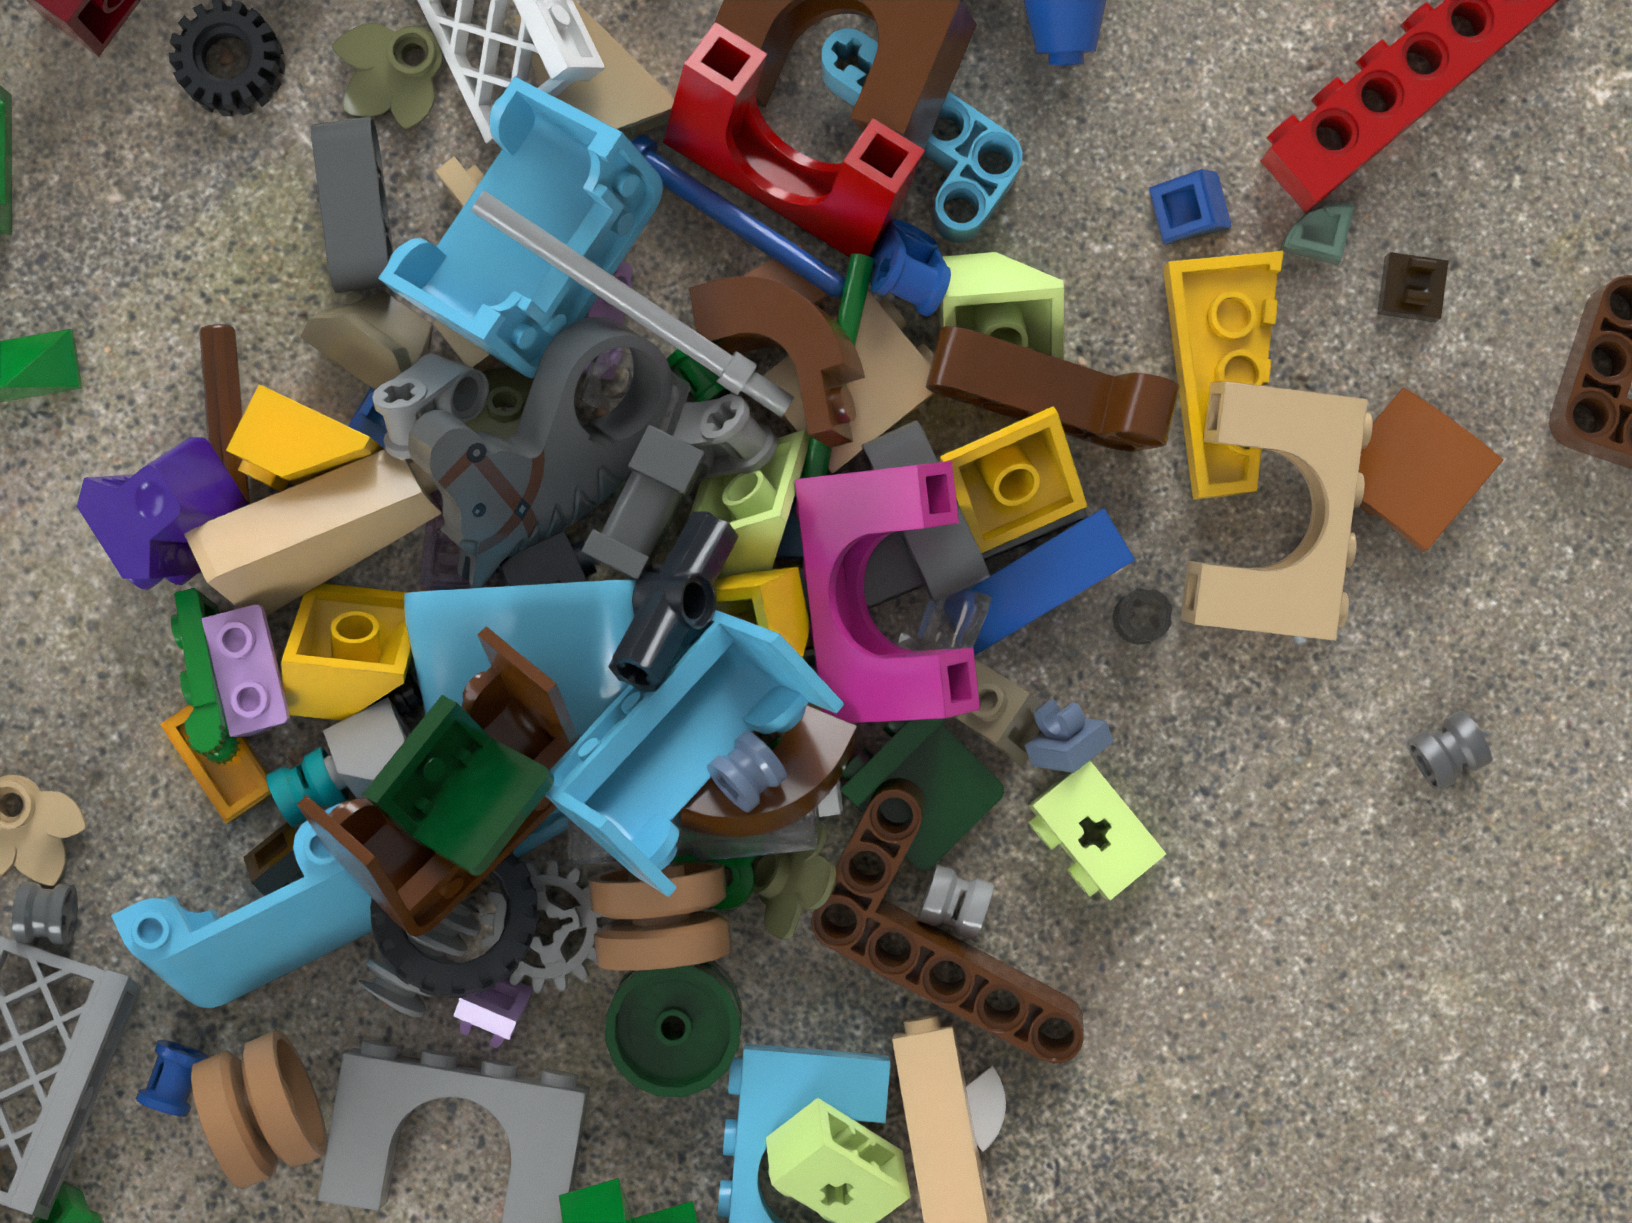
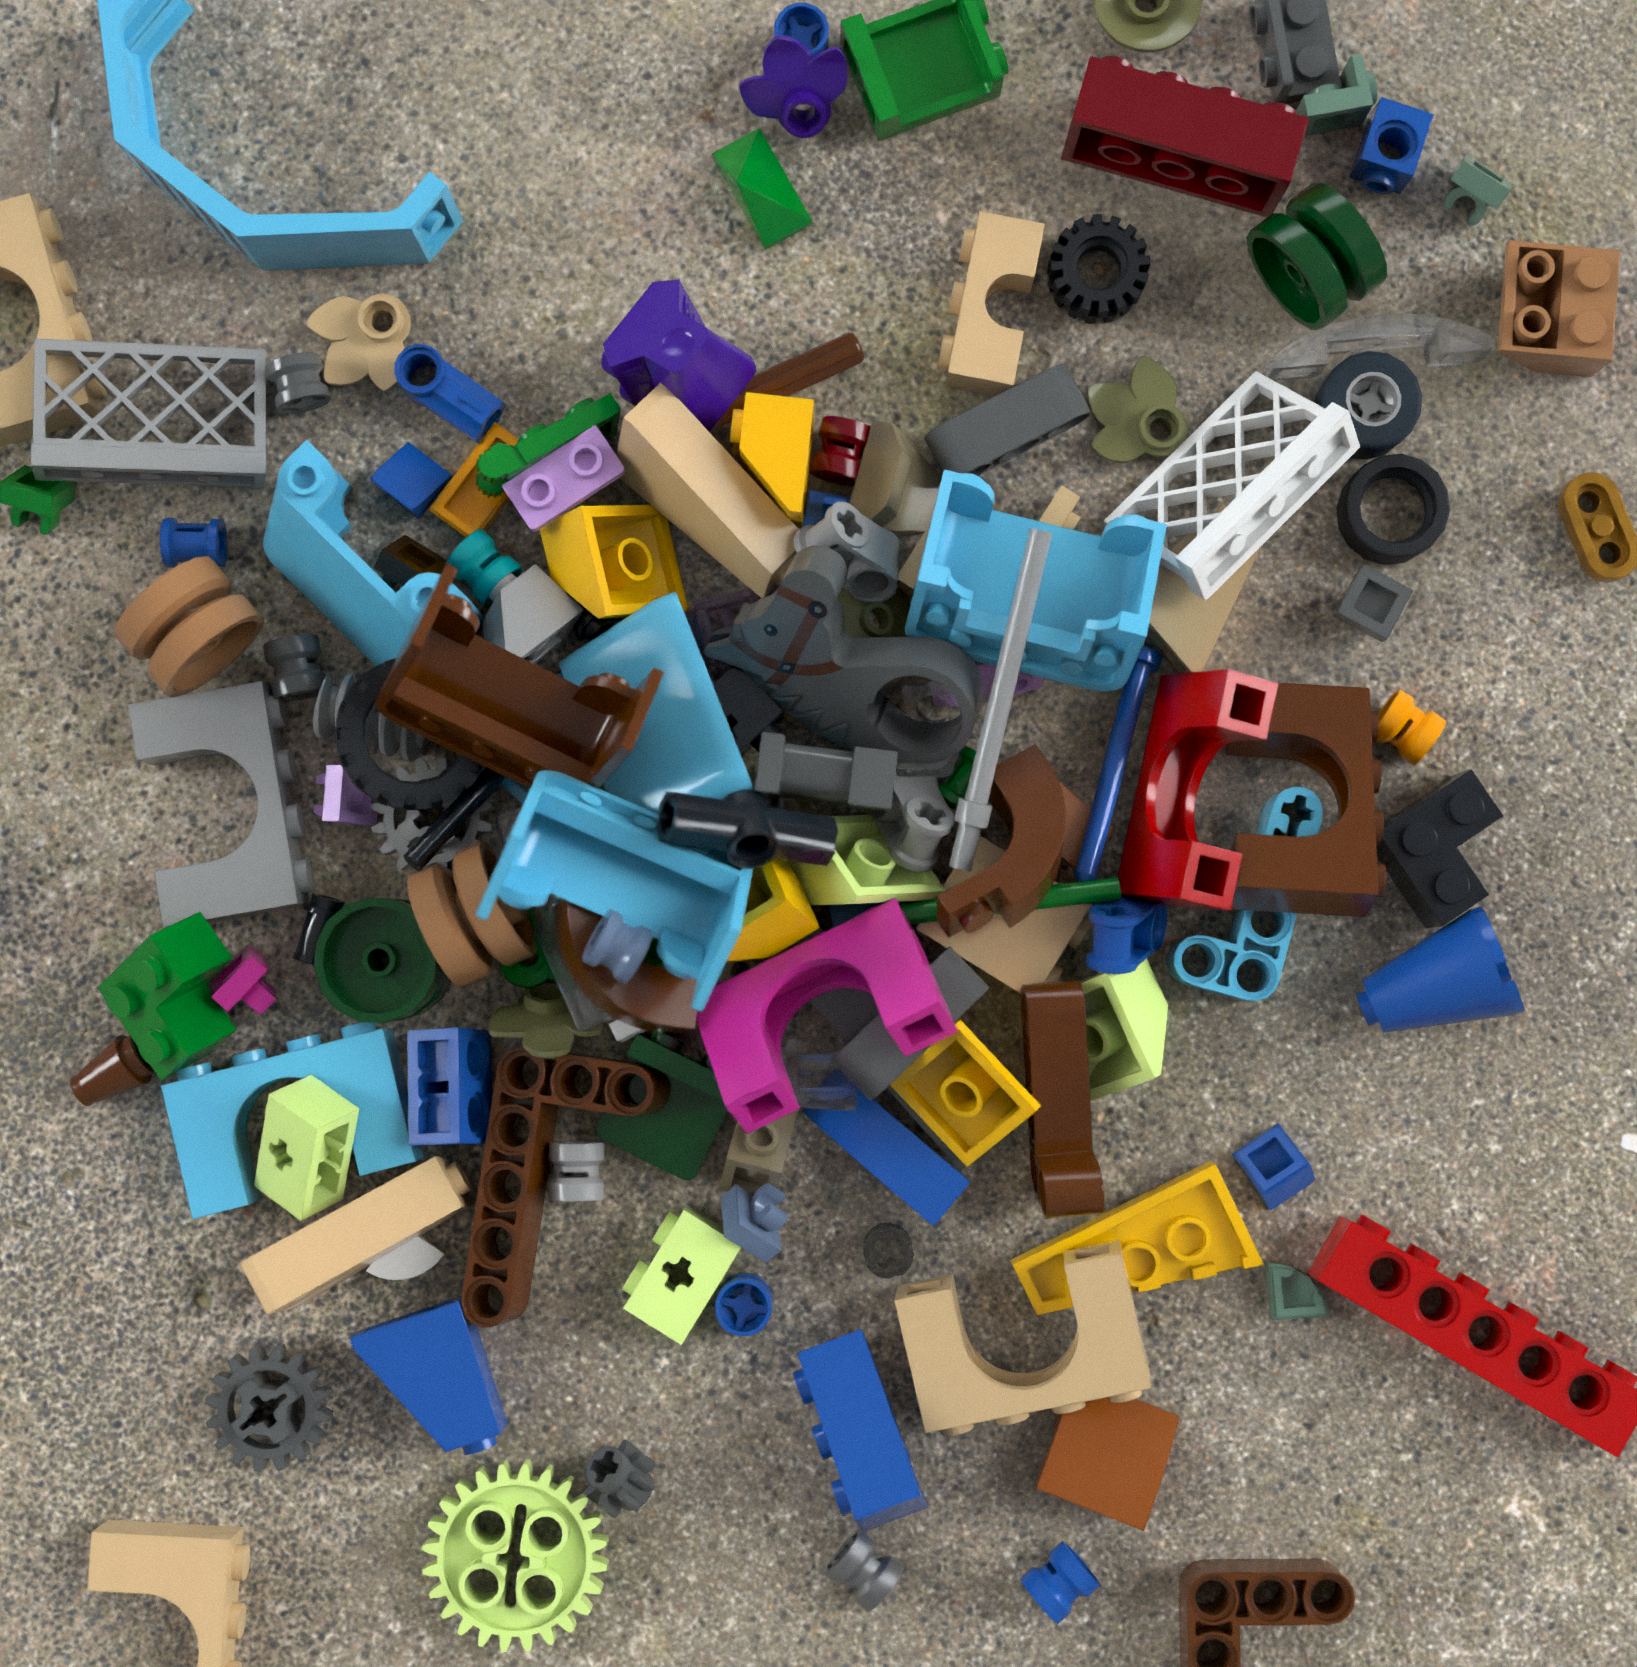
camera: 75 degrees right, 0 degrees up
(115, 758) = (450, 394): none -> blue piece
(178, 151) = (1000, 258): none -> tan arch
(188, 831) = (411, 479): none -> blue slope
(318, 380) = (840, 450): none -> dark red wheel
(344, 1016) = (295, 667): none -> dark grey wheel
(458, 788) = (515, 699): dark green bracket -> none
(556, 902) = (453, 819): none -> black bar
(606, 1078) = (318, 912): none -> black pin
(644, 1178) = (244, 981): none -> dark pink tile
(826, 1001) = (448, 1086): none -> blue brick
(1110, 1111) = (438, 1373): none -> blue slope
(1156, 781) = (740, 1312): none -> blue wheel
(1277, 963) = (619, 1478): none -> dark grey gear
(1295, 1143) = (467, 1548): none -> yellowish green gear
(1311, 706) = (858, 1431): none -> blue wedge
(1412, 287) = (1273, 1394): dark brown tile -> none
(1525, 560) = (1060, 1582): none -> blue wheel

